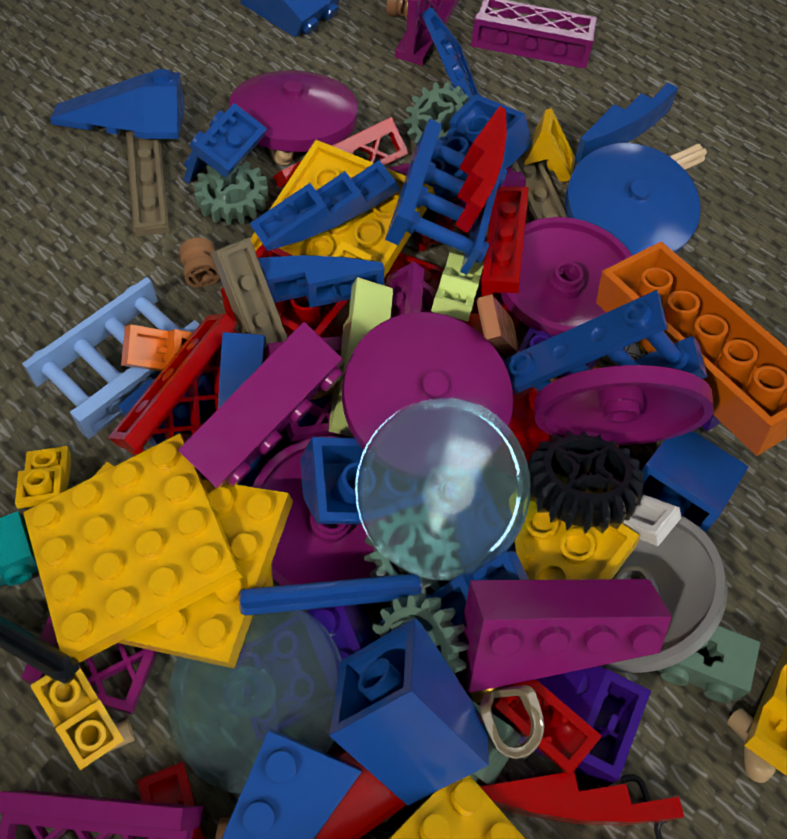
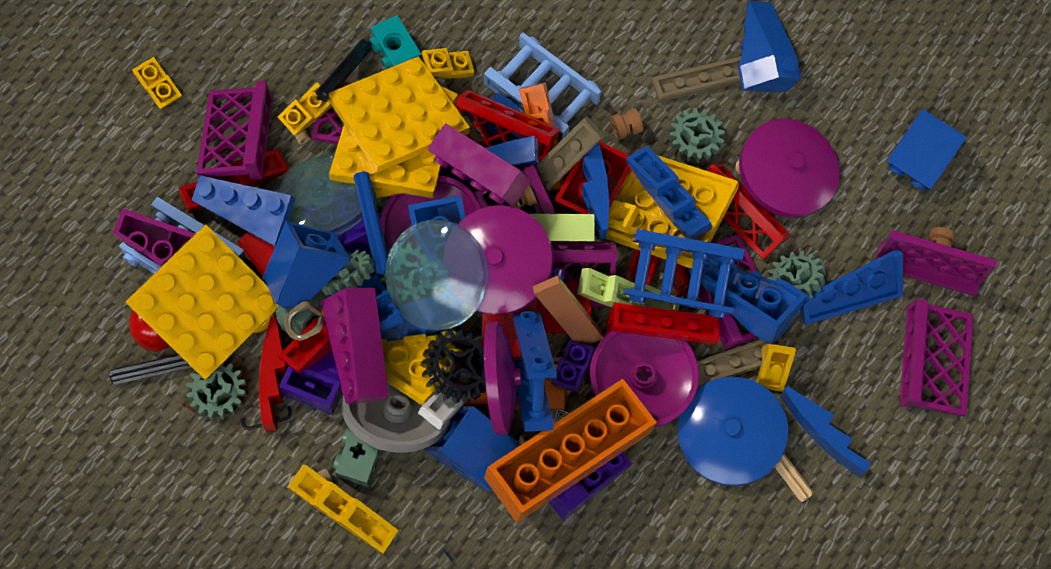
camera: 85 degrees right, 10 degrees up
(225, 143) = (727, 121): blue bracket -> none
(483, 167) = (714, 292): red slope -> none

